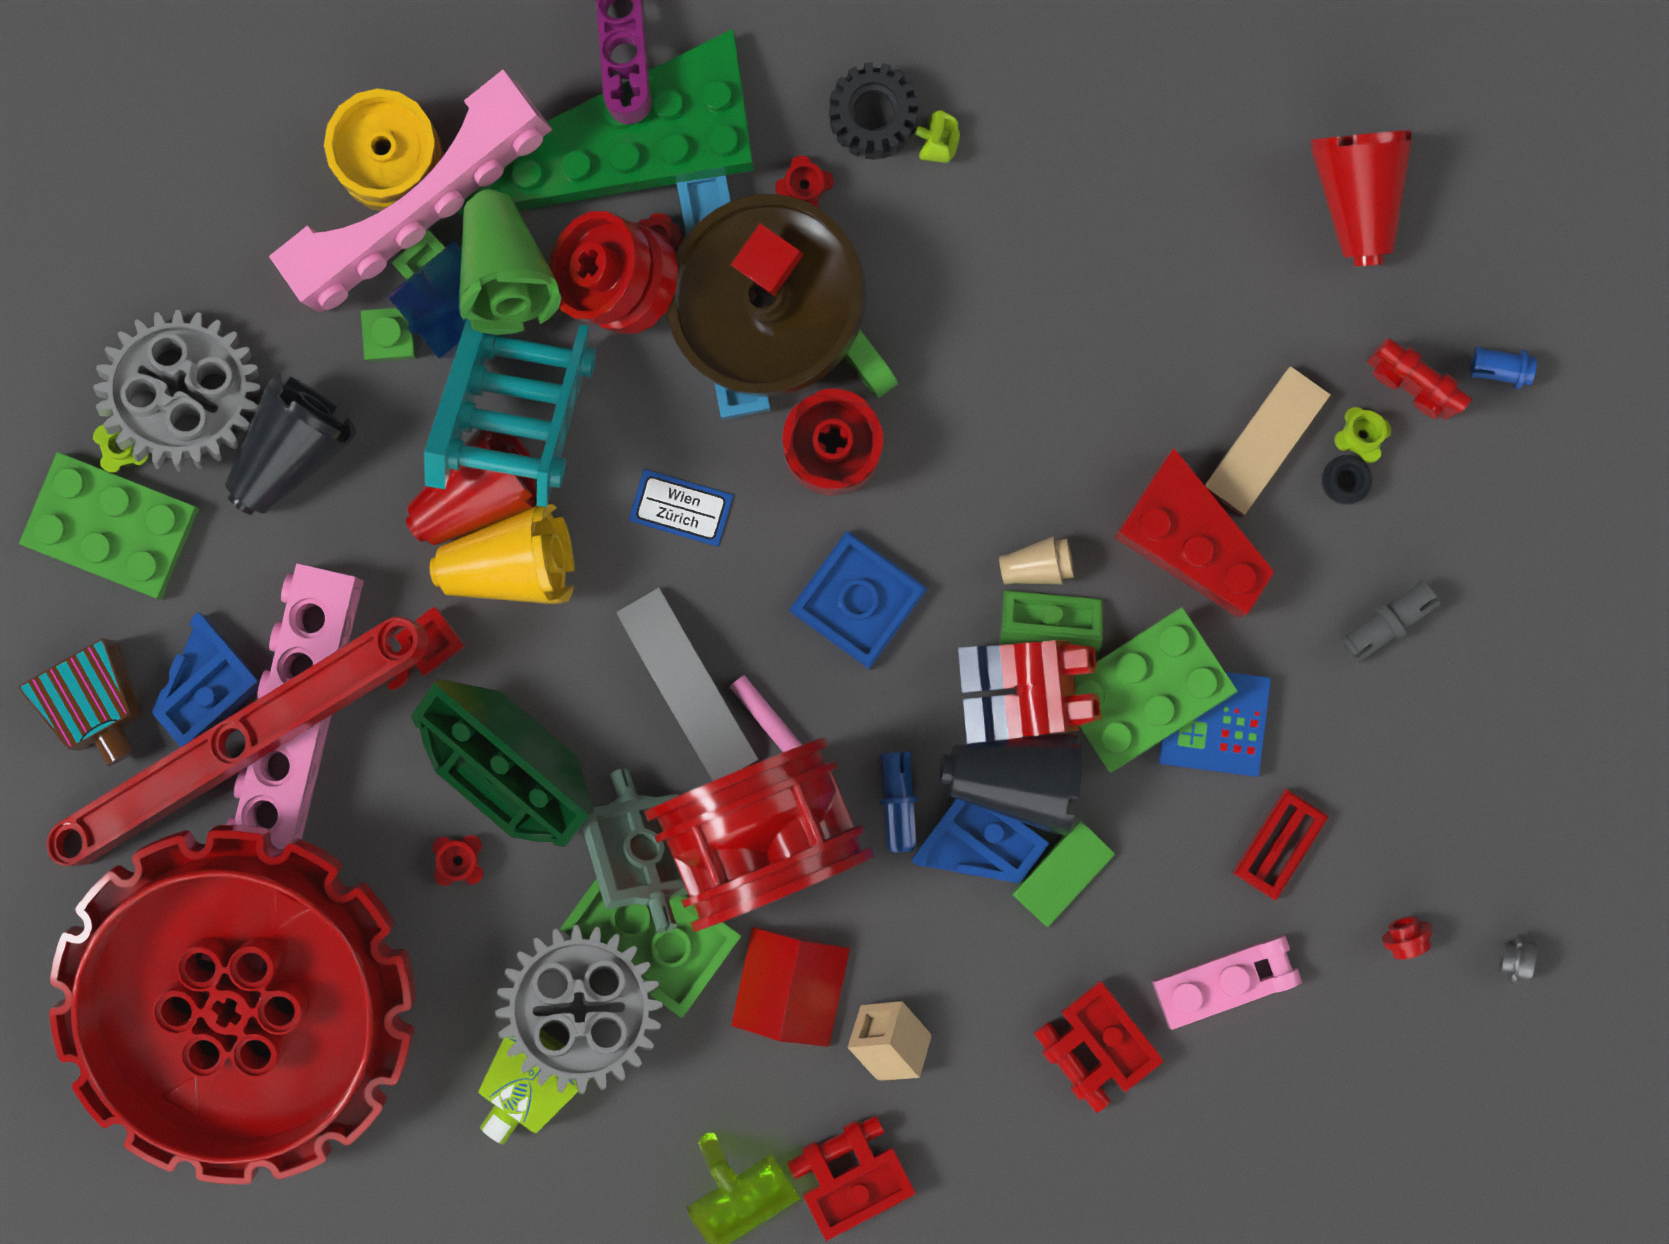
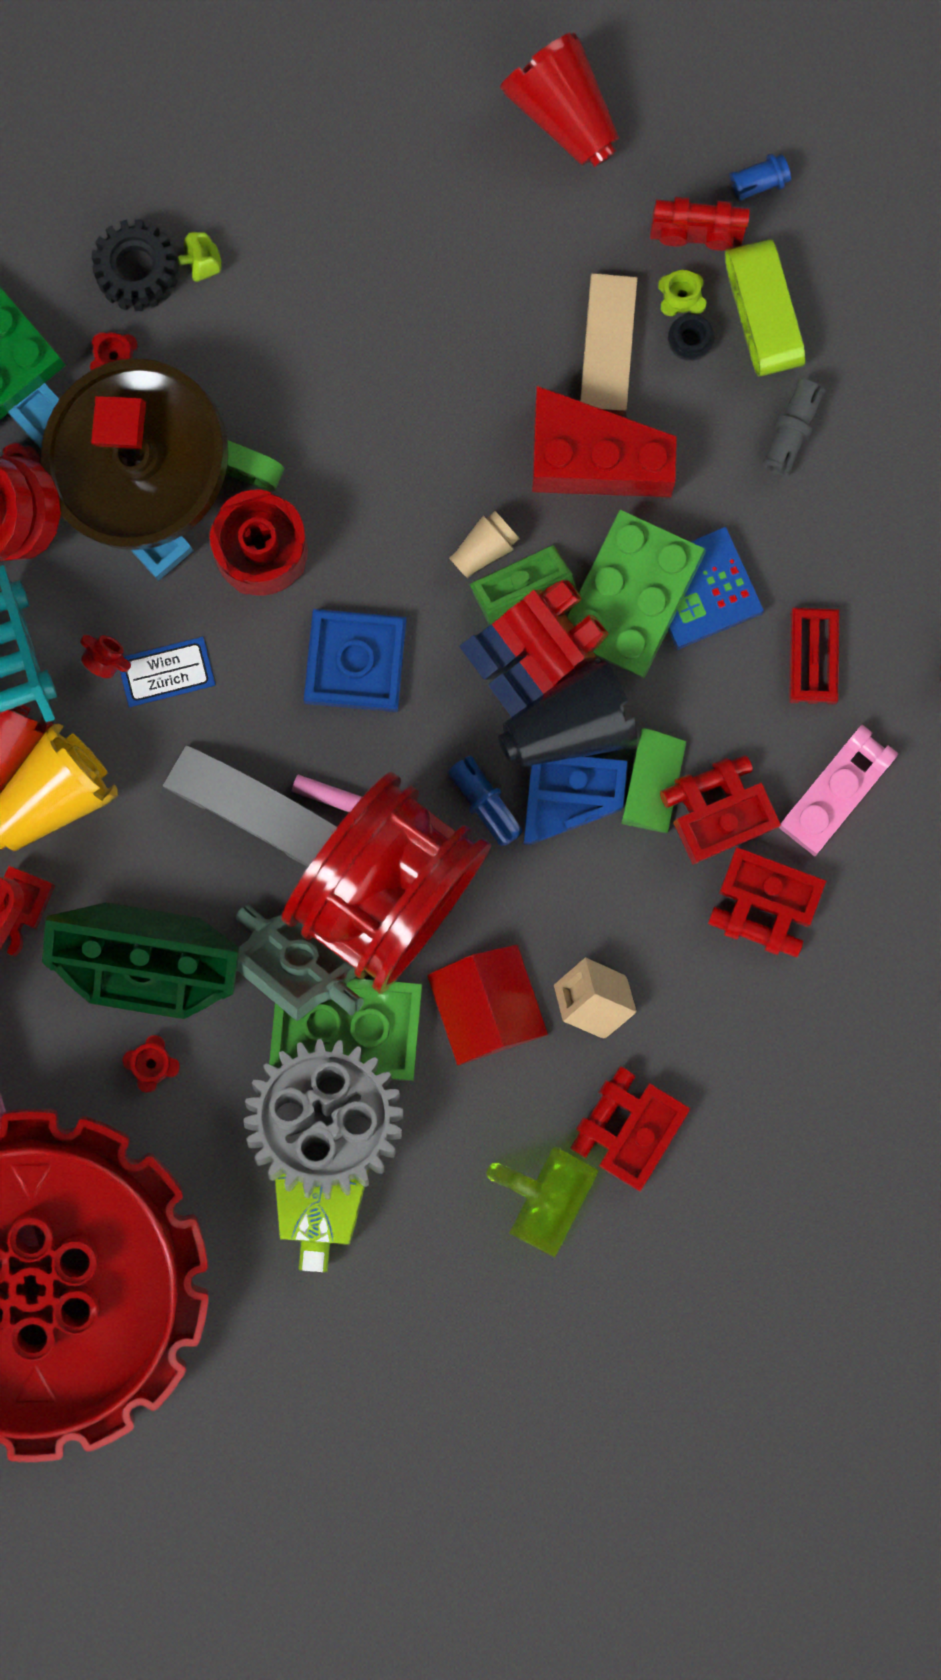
camera: 30 degrees left, 5 degrees down
(631, 462) = (103, 656): none -> red plate
(1106, 952) = (724, 823): none -> red plate
(1432, 493) = (765, 307): none -> lime beam

